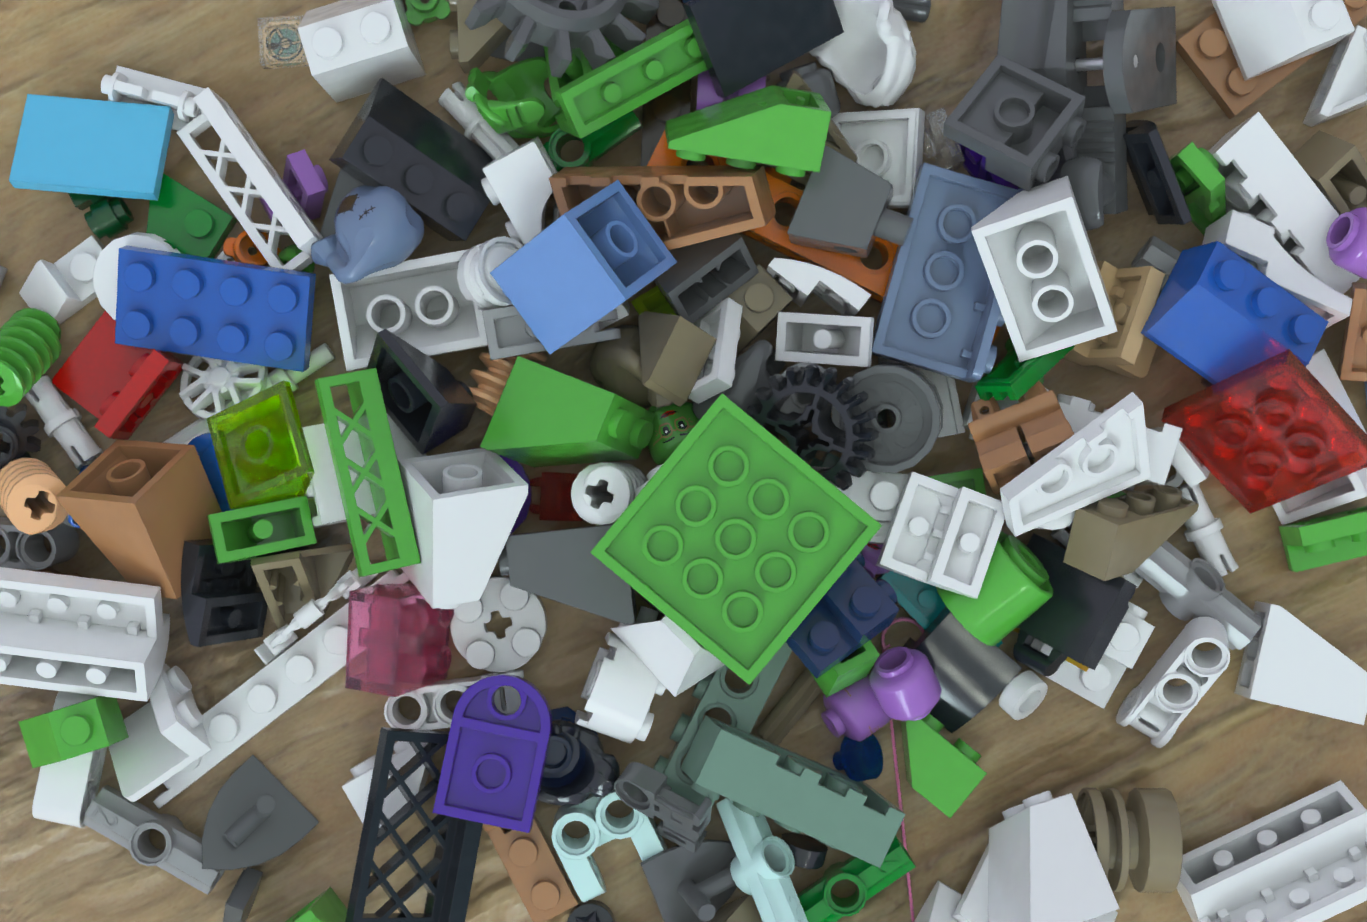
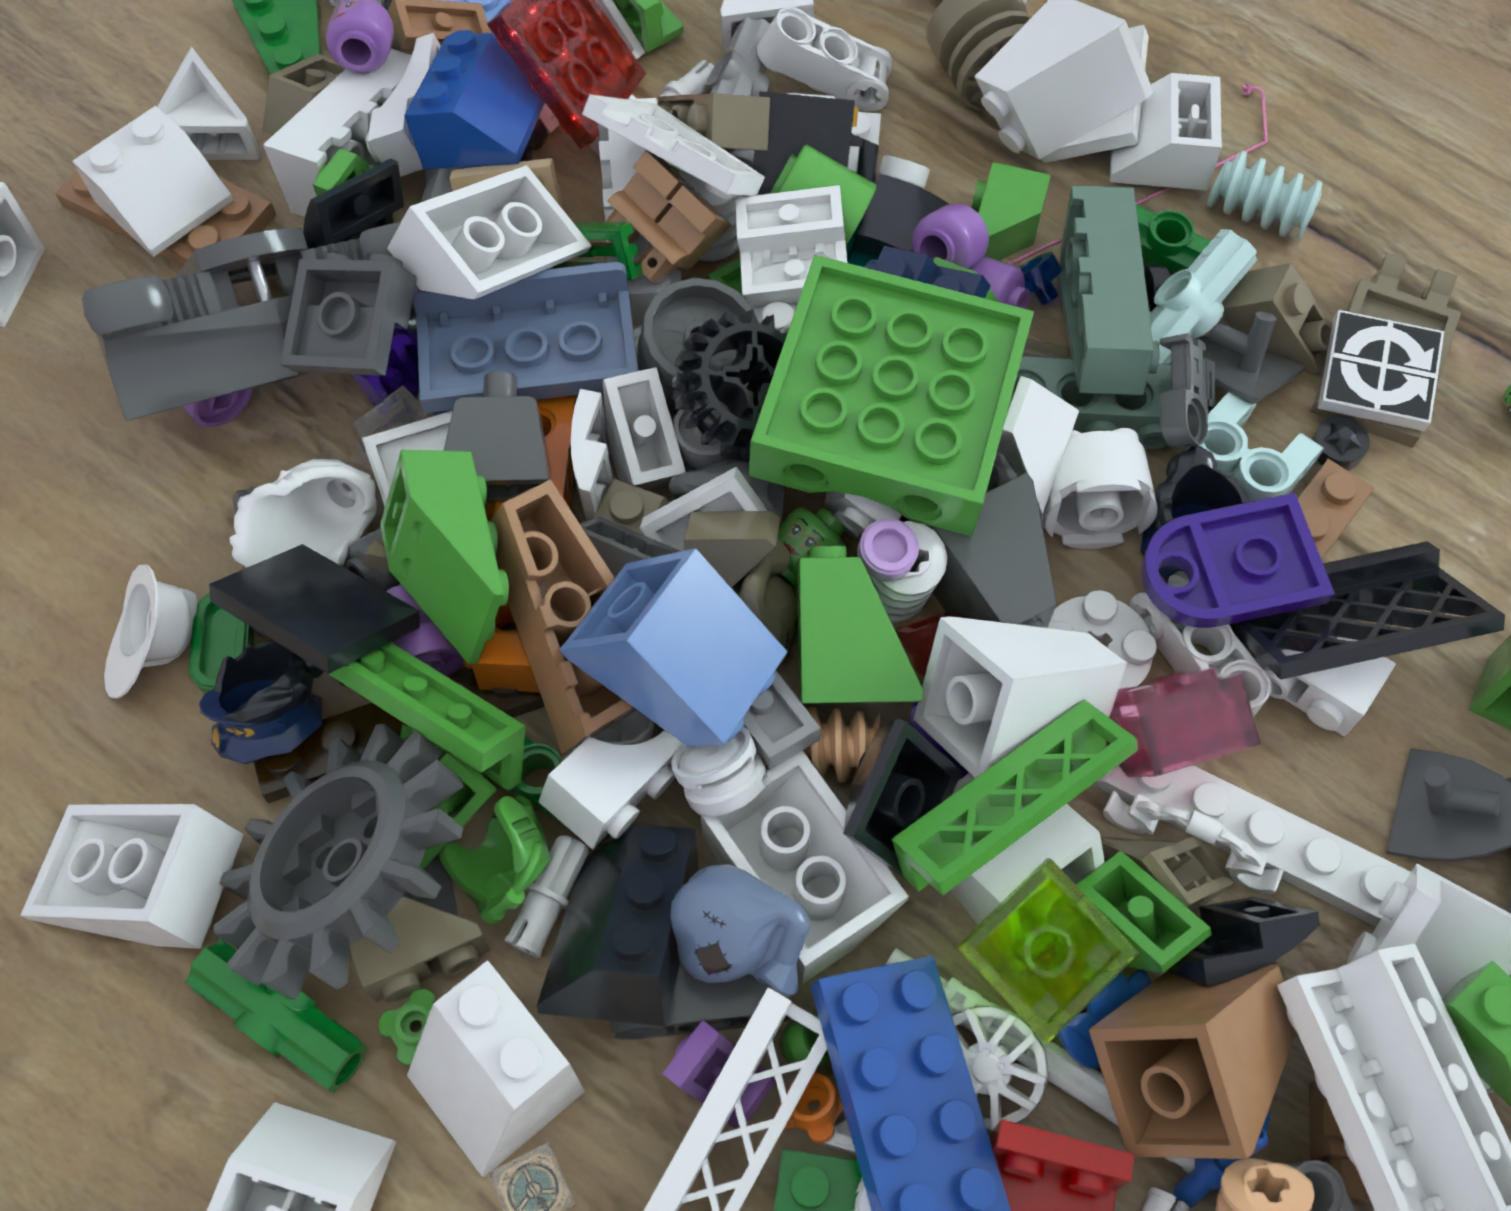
camera: 120 degrees left, 25 degrees down
(606, 474) = (888, 549): none -> lavender tile

